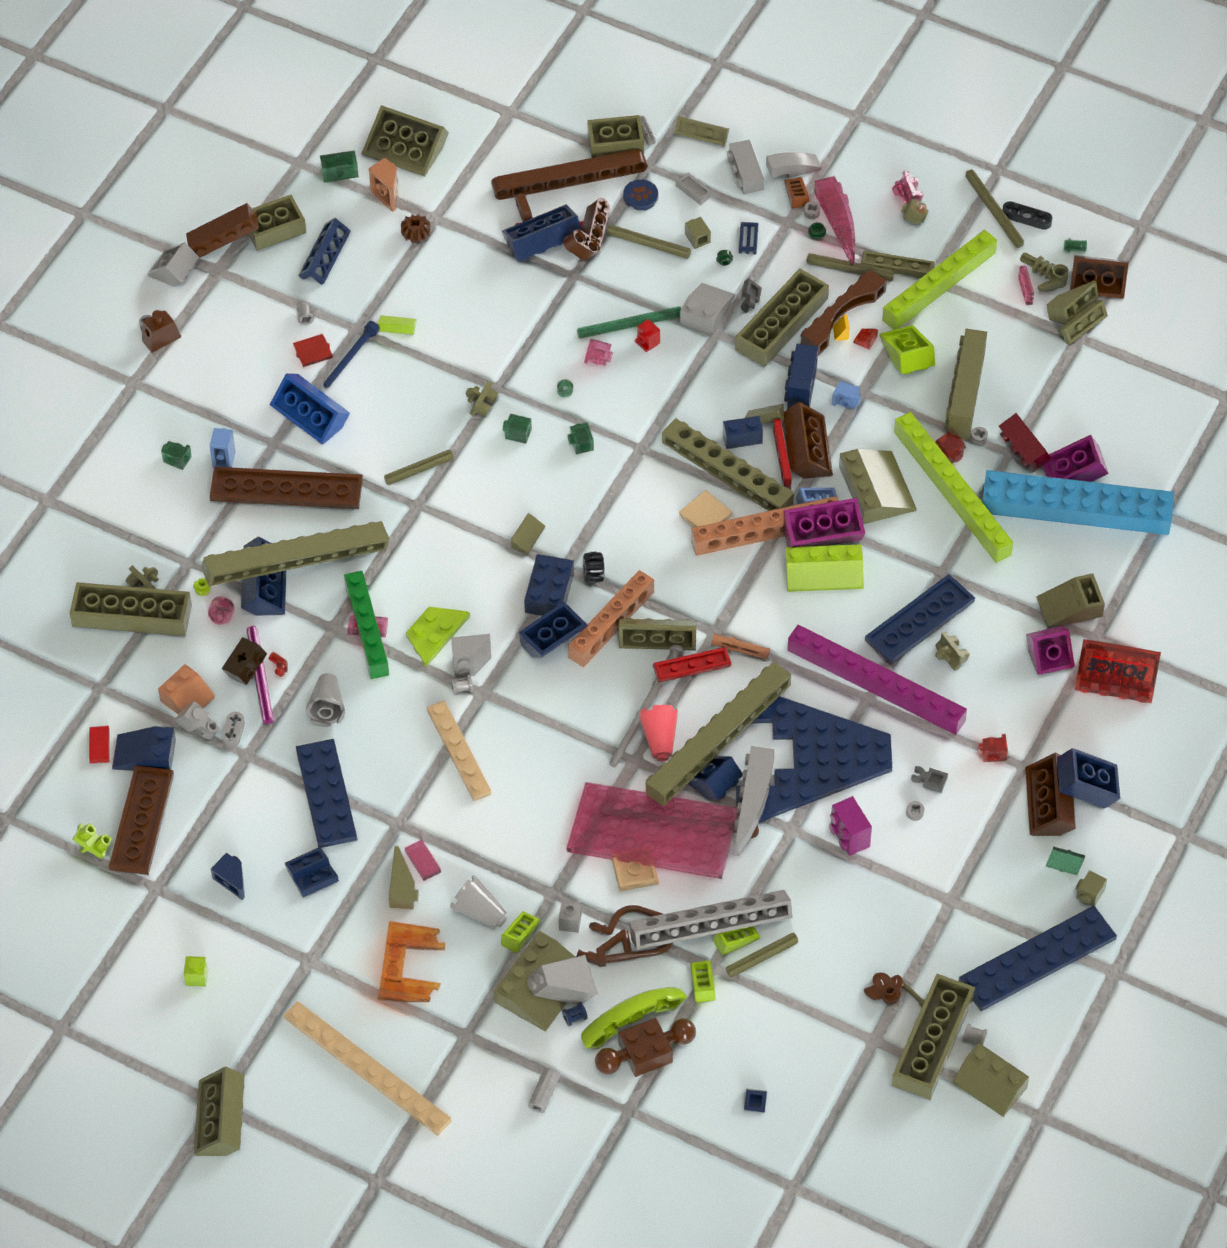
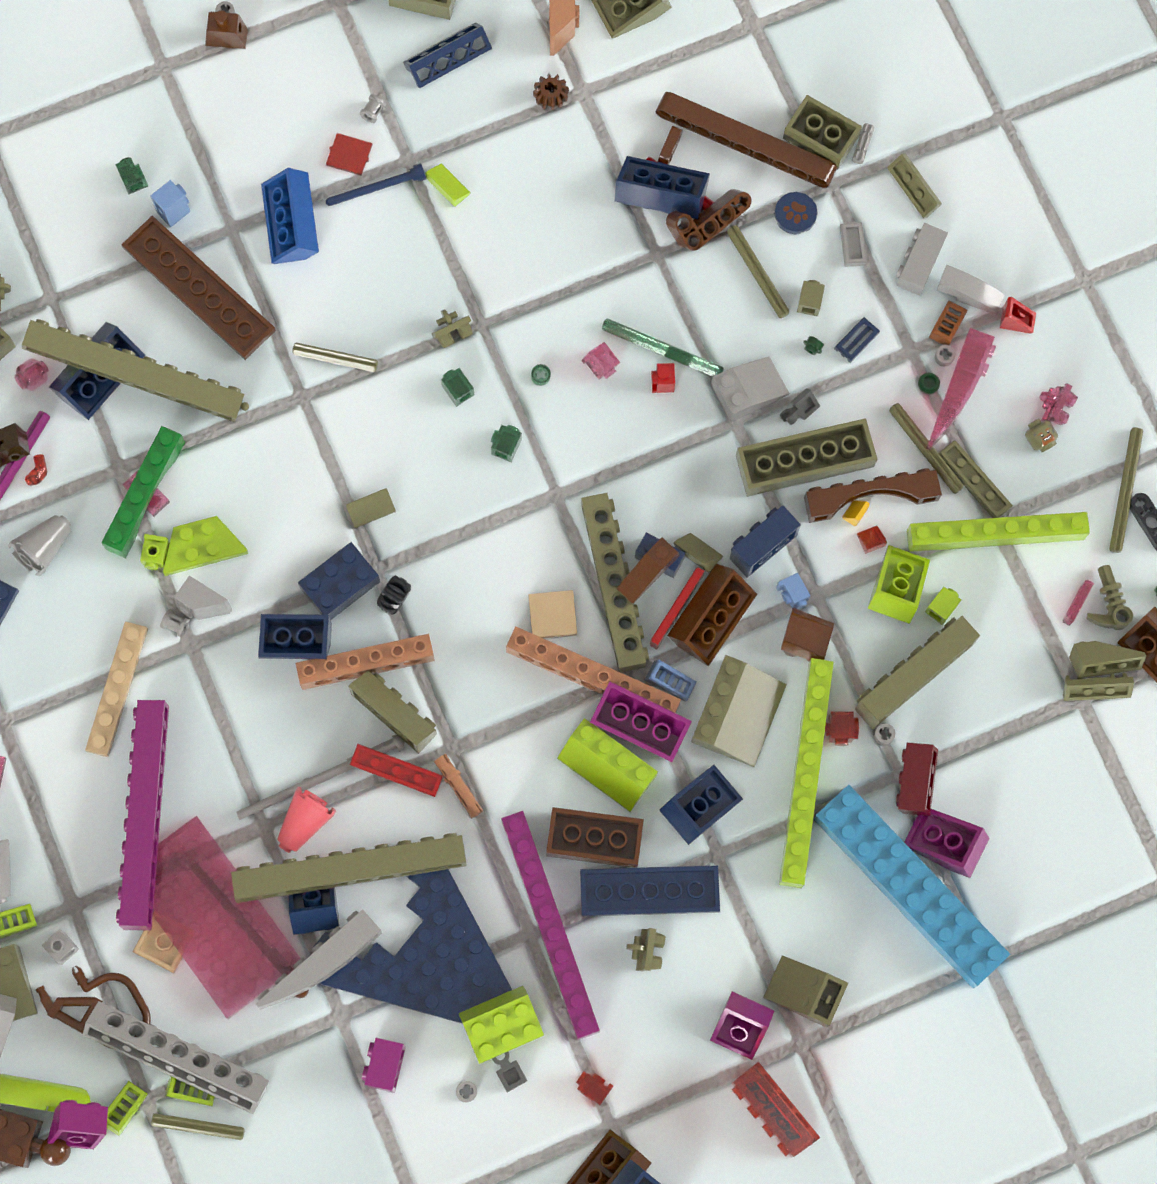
camera: 35 degrees right, 20 degrees up
(407, 653) = (157, 560): none -> lime brick
(552, 800) = (144, 815): none -> magenta brick
(687, 997) = (79, 1124): none -> magenta slope
(746, 436) = (648, 570): none -> reddish brown slope
(835, 160) = (1017, 316): none -> slope
(857, 610) = (594, 837): none -> reddish brown brick
(877, 416) = (806, 636): none -> reddish brown slope
(901, 751) = (501, 1024): none -> lime brick
(904, 550) = (701, 804): none -> dark blue slope
(946, 341) = (943, 605): none -> lime brick

